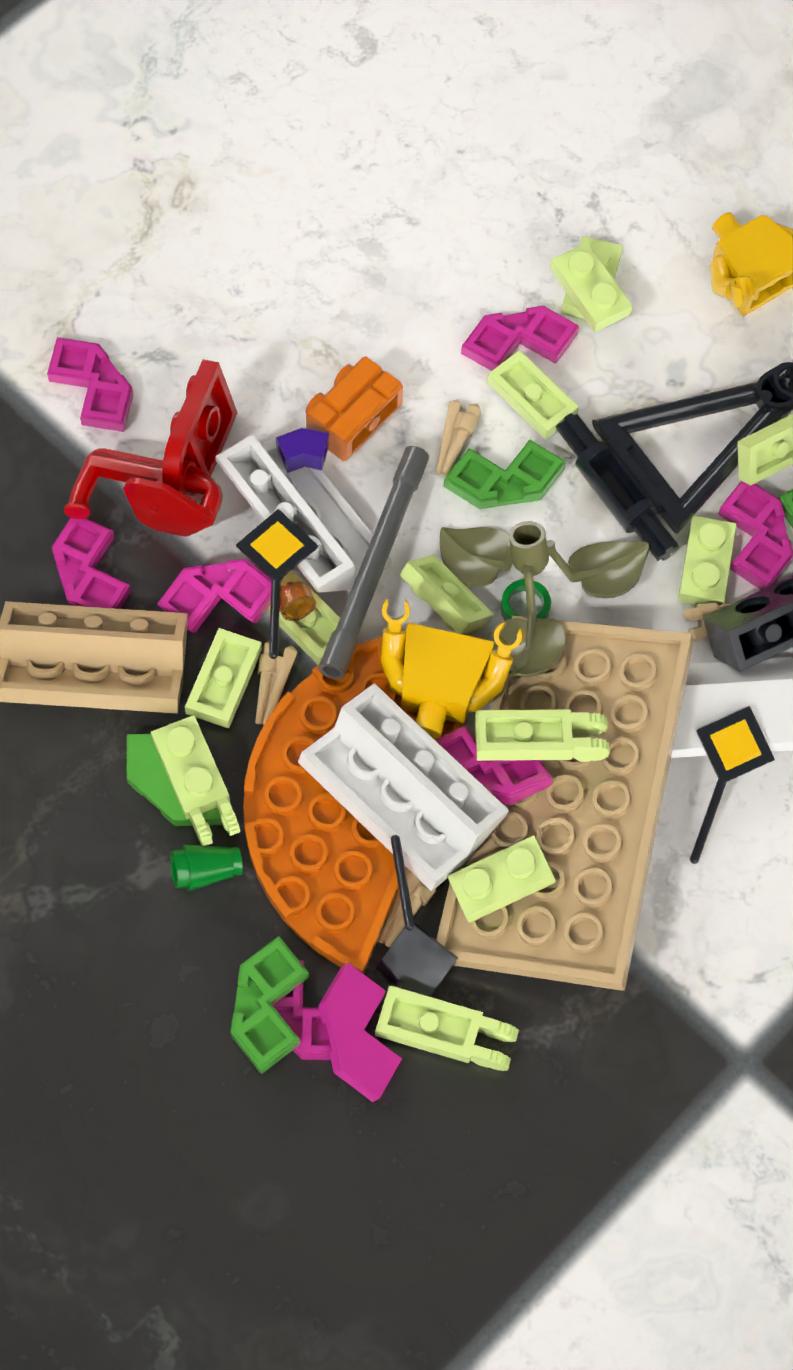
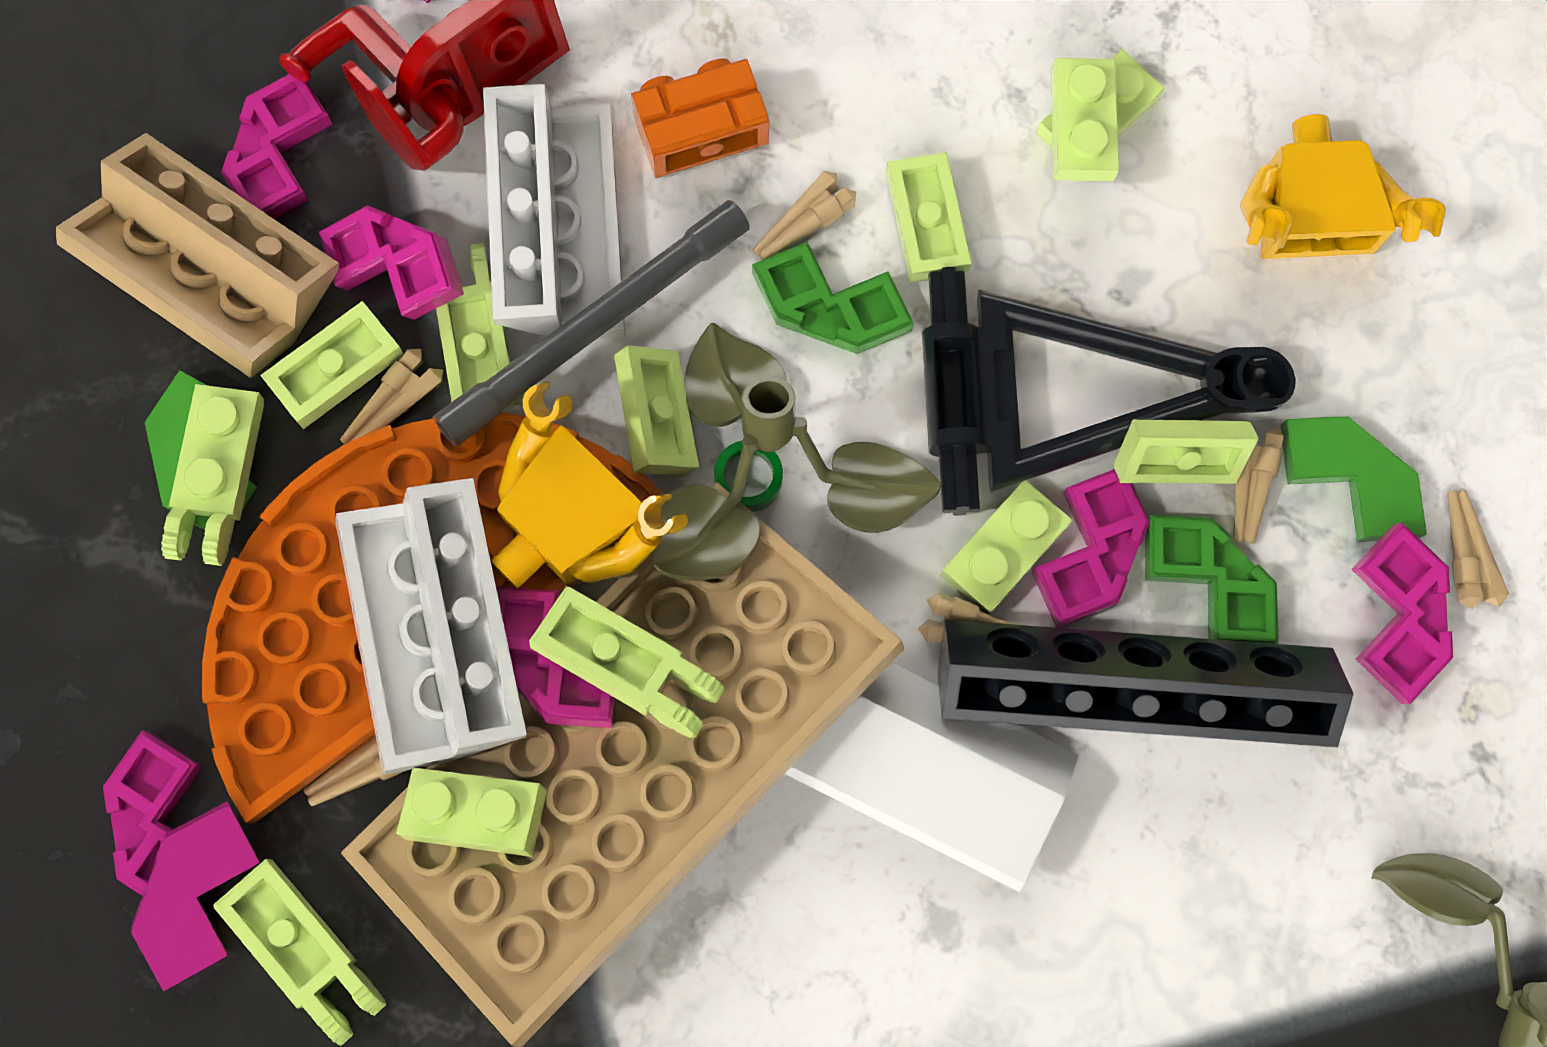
camera: 30 degrees right, 10 degrees up
(203, 865) = (150, 580): green cone -> none
(255, 1021) = (84, 814): bright green tile -> none
(276, 549) = (473, 243): piece -> none
(296, 601) = (462, 318): clear orange hinge -> none
(303, 449) = (602, 135): dark purple piece -> none
(415, 958) = (320, 835): black piece -> none
(536, 329) = (990, 136): dark pink tile -> none
(734, 748) = (870, 813): piece -> none

